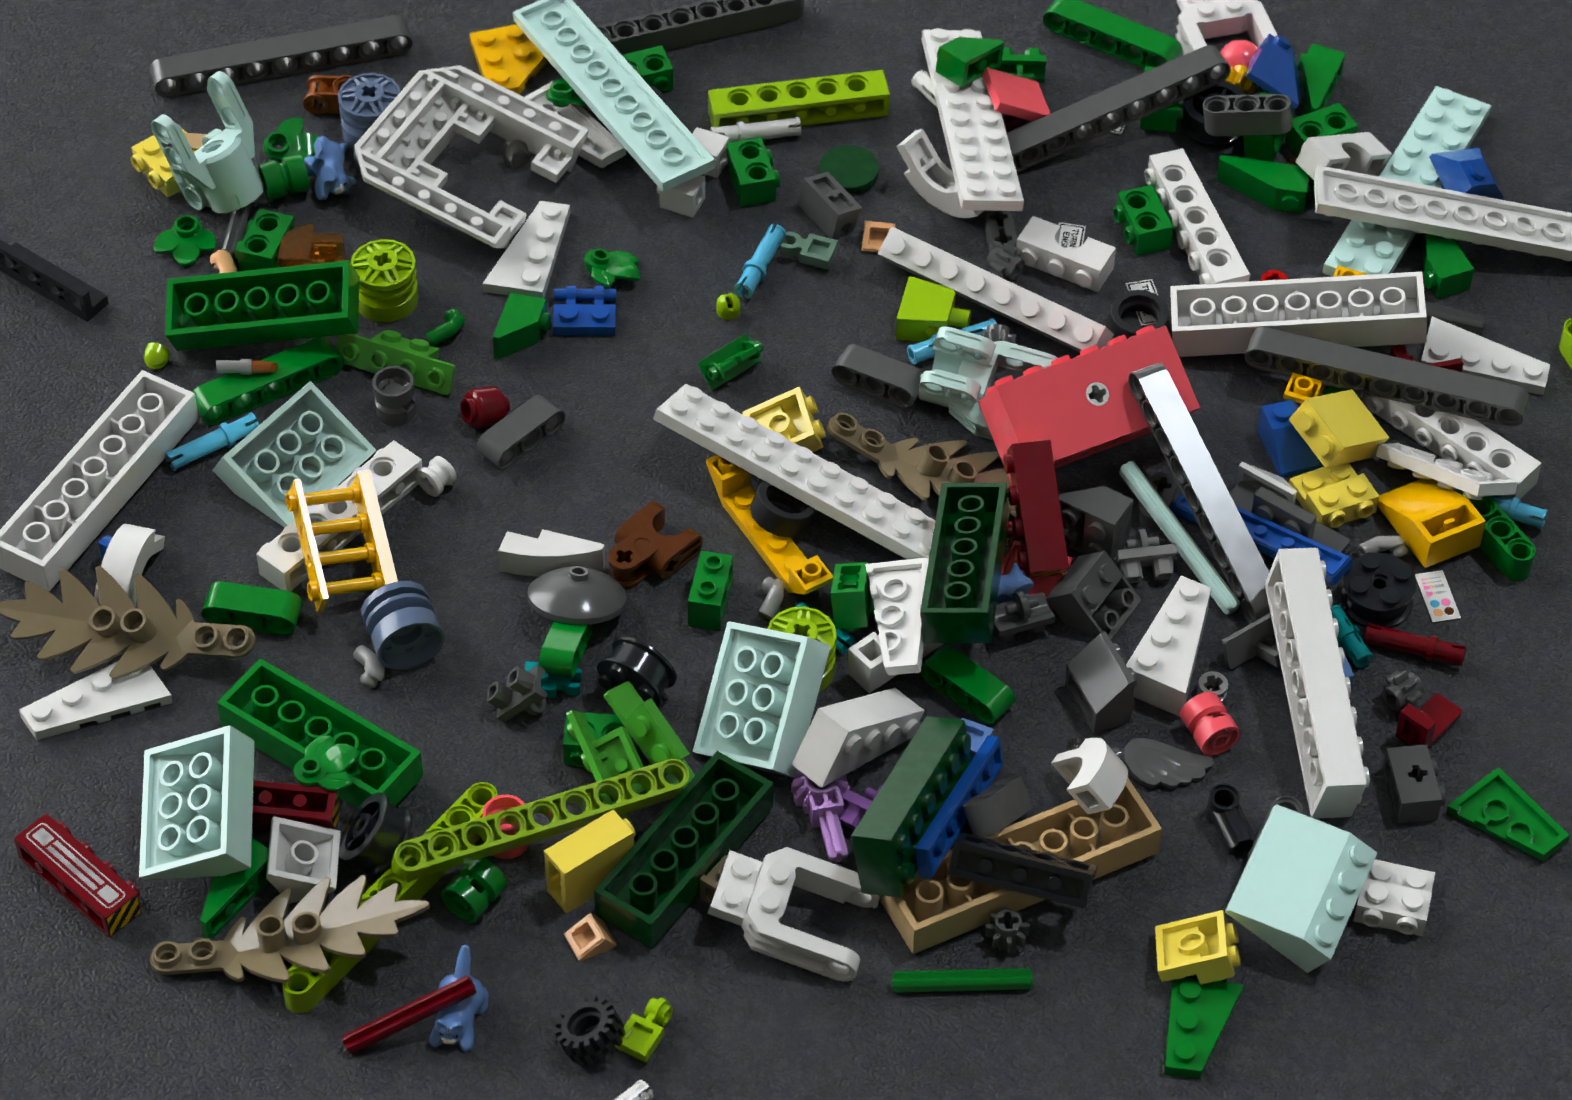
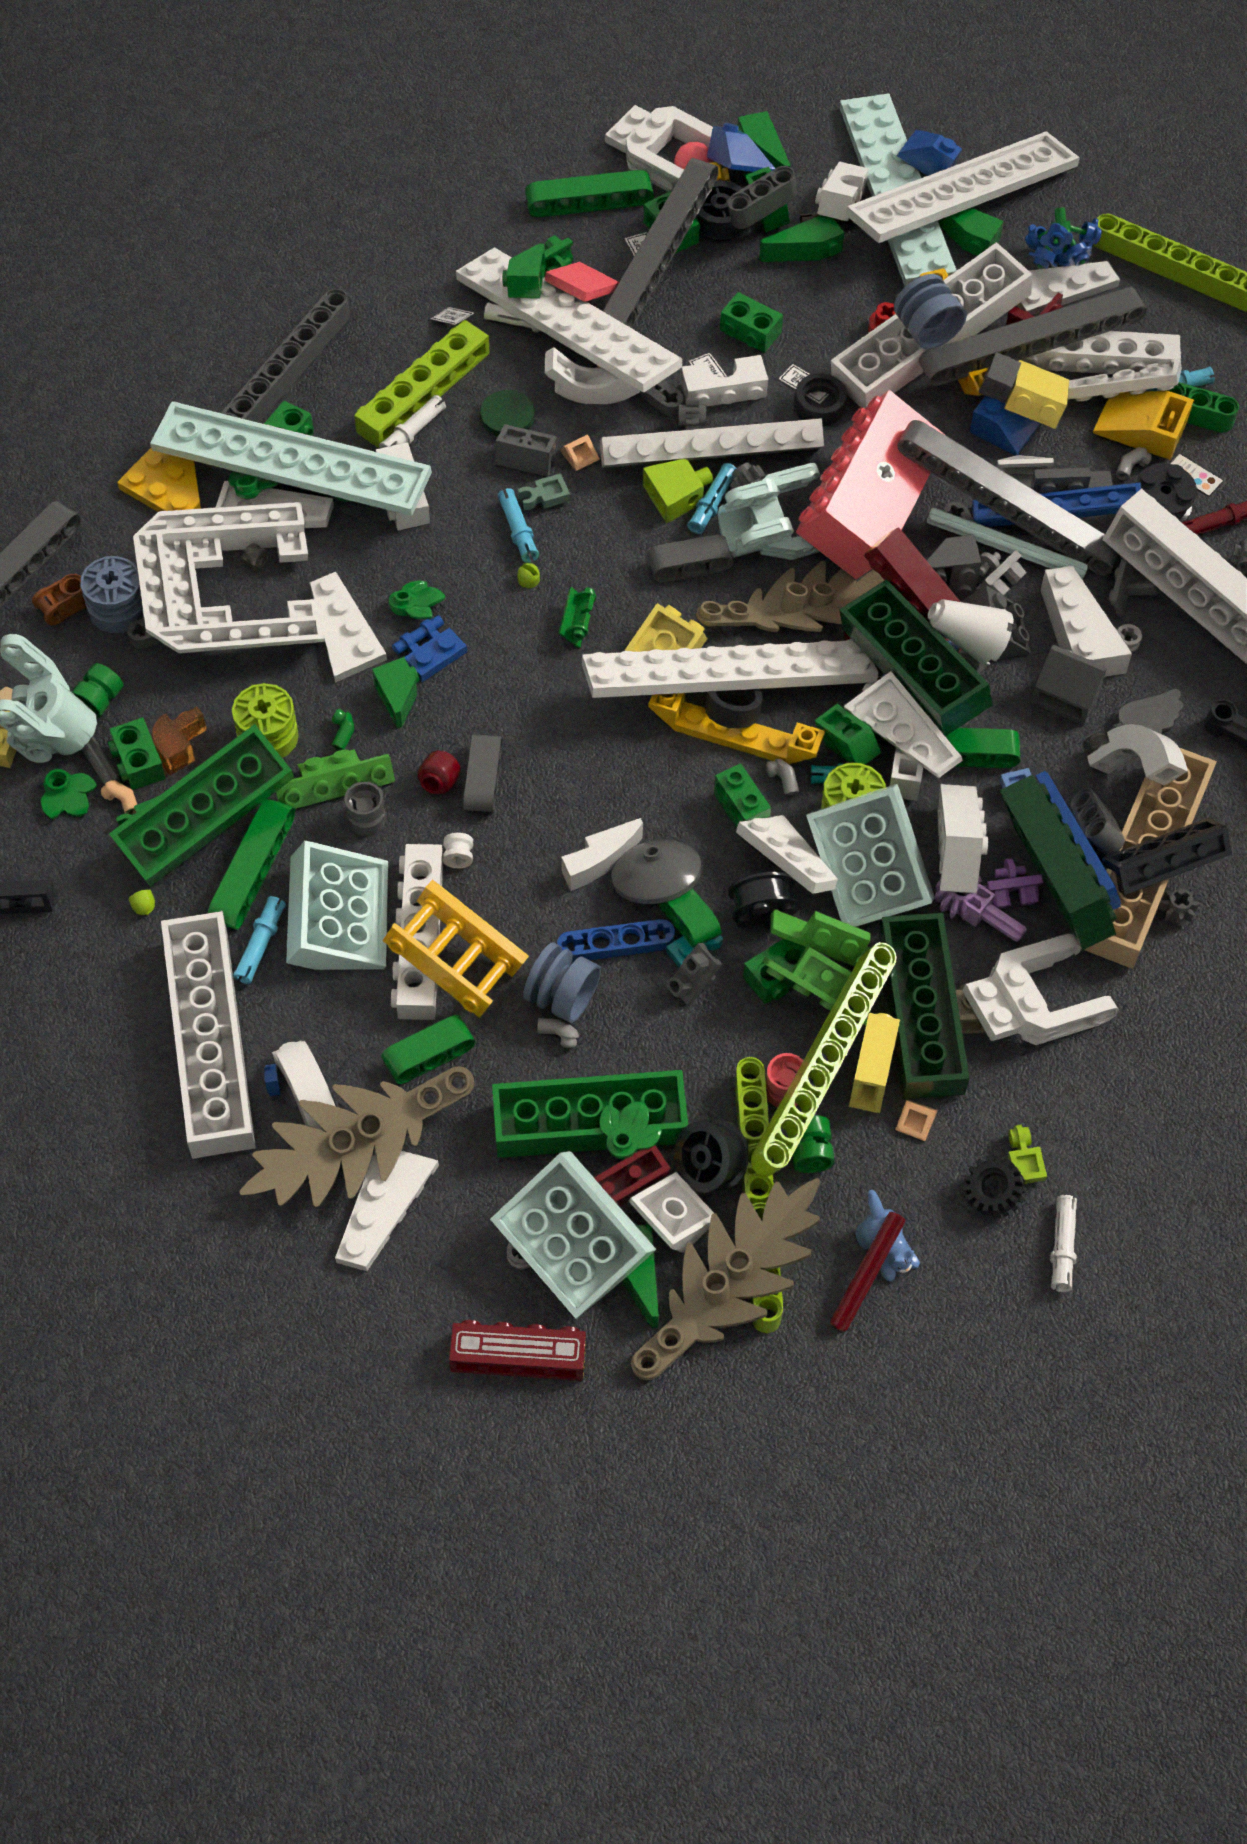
camera: 40 degrees left, 10 degrees up
(245, 366) = (234, 863): light grey piece -> none
(292, 138) = (73, 657): green plate -> none
(328, 168) = (125, 661): medium blue animal -> none
(488, 634) = (615, 935): none -> blue beam
(644, 551) = (665, 800): reddish brown piece -> none
(693, 648) = (789, 851): none -> white wing
(752, 171) = (448, 460): green brick -> none
(879, 63) = (452, 315): none -> white sticker
(962, 980) = (1182, 963): green axle -> none
(1037, 565) = (973, 628): none -> white cone
(1195, 219) = (801, 307): white brick -> none
(1210, 724) = (1158, 665): coral wheel -> none
(1284, 288) = (930, 311): none -> sand blue wheel
(1306, 383) = (1000, 377): none -> dark grey brick
(1323, 122) = (809, 177): green brick -> none
(1335, 494) = (1069, 443): light yellow plate -> none
(1495, 303) = (1061, 241): none -> blue plant

